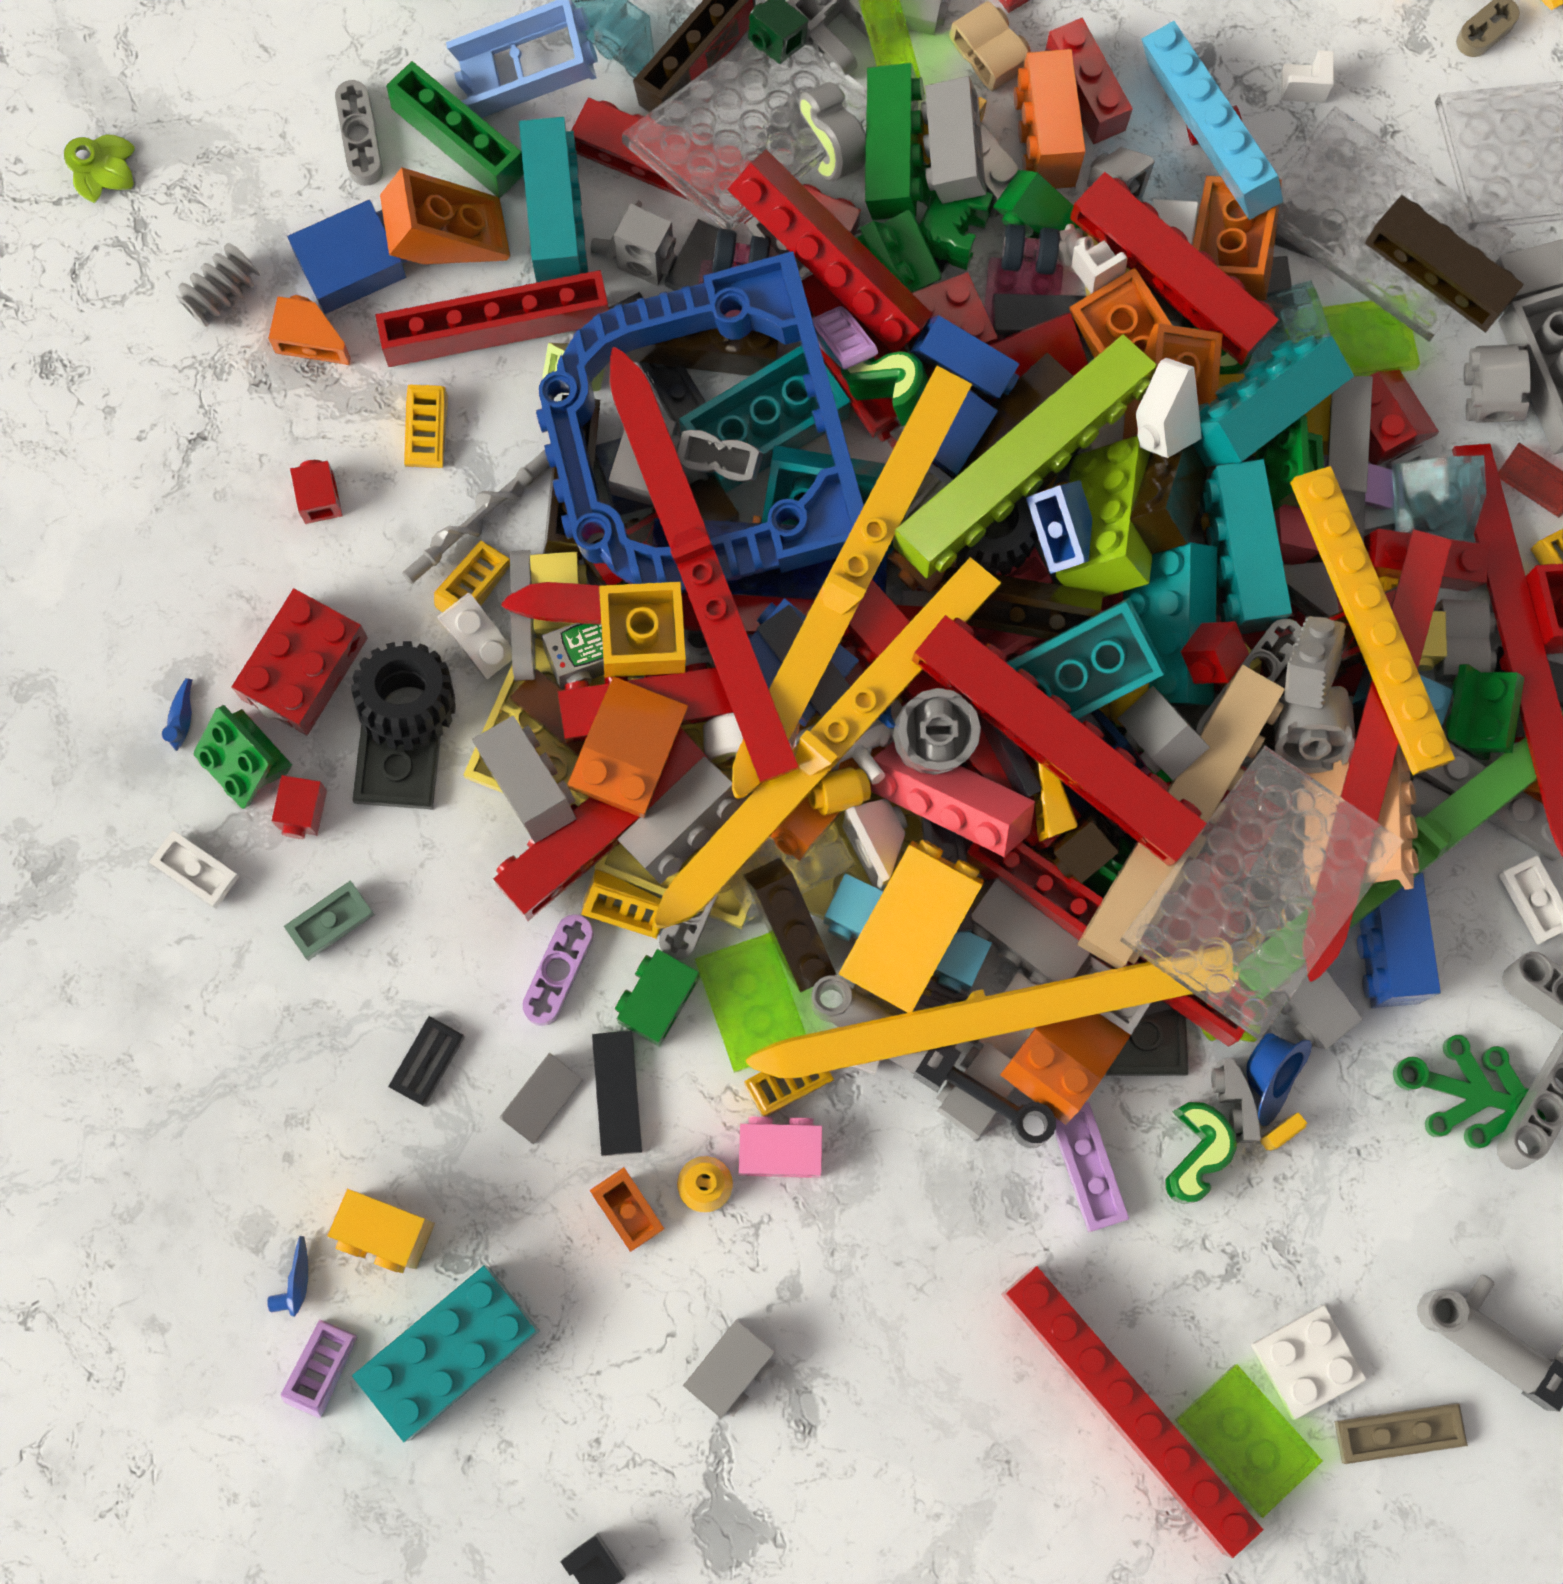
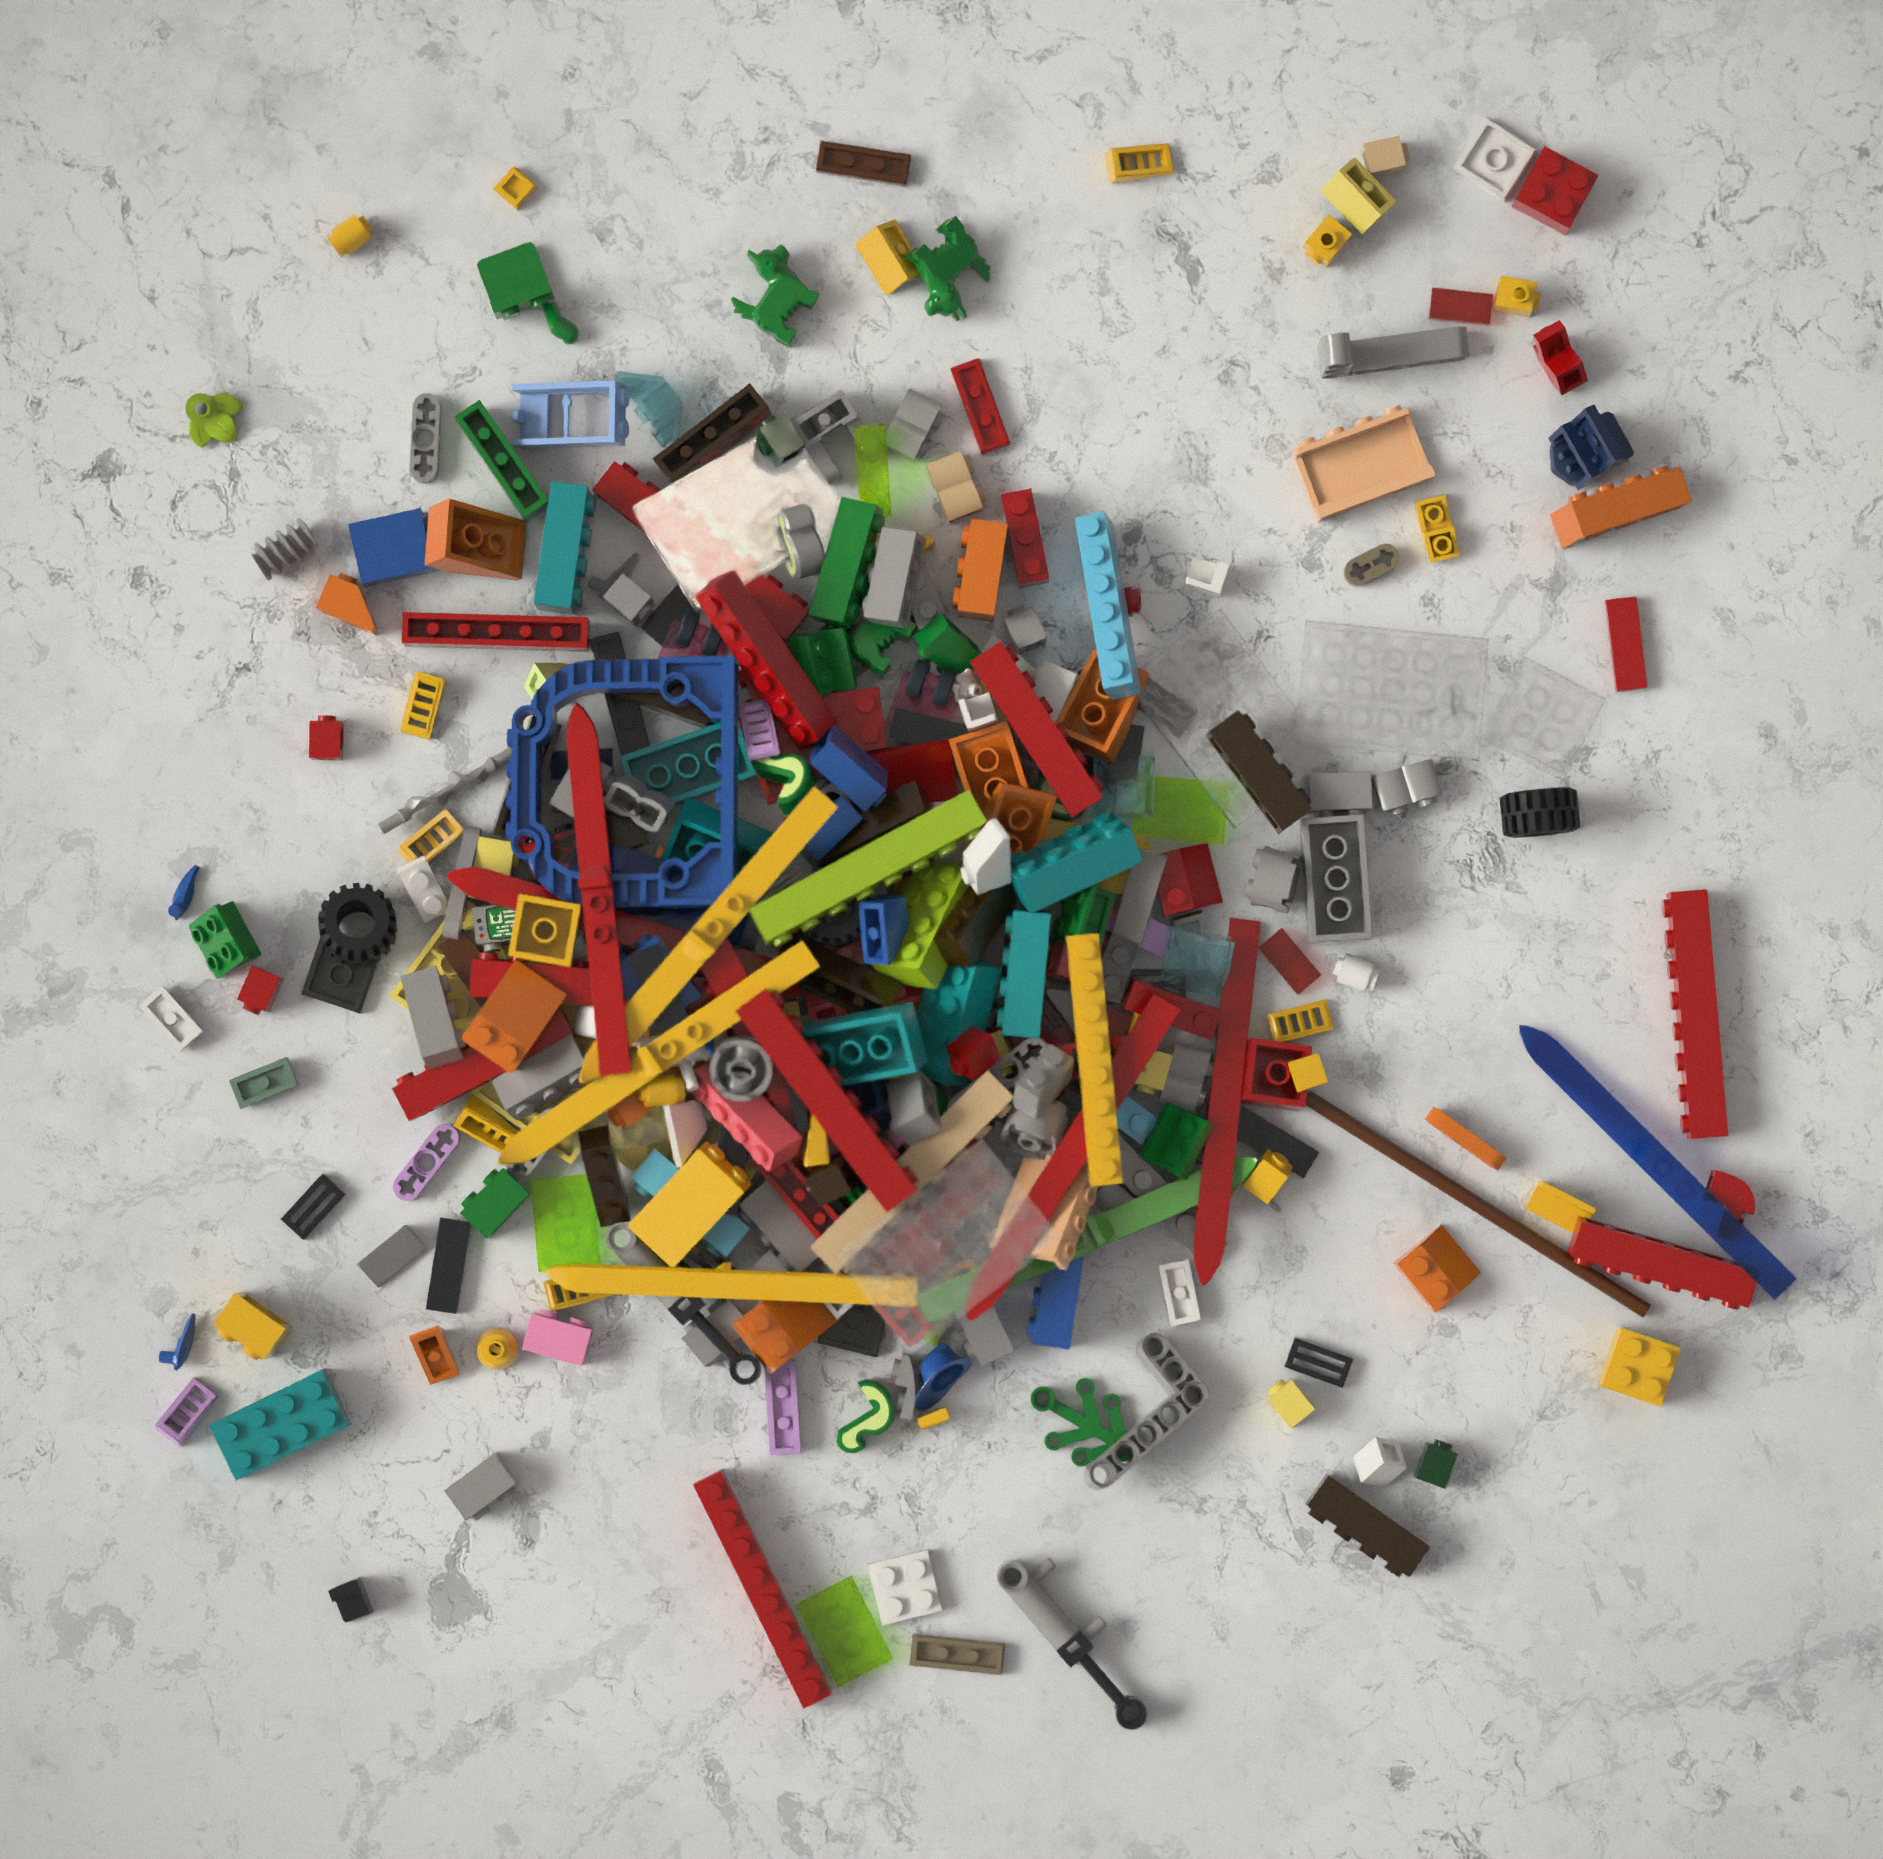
camera: 20 degrees right, 10 degrees up
(300, 662) = (284, 876): red piece -> none

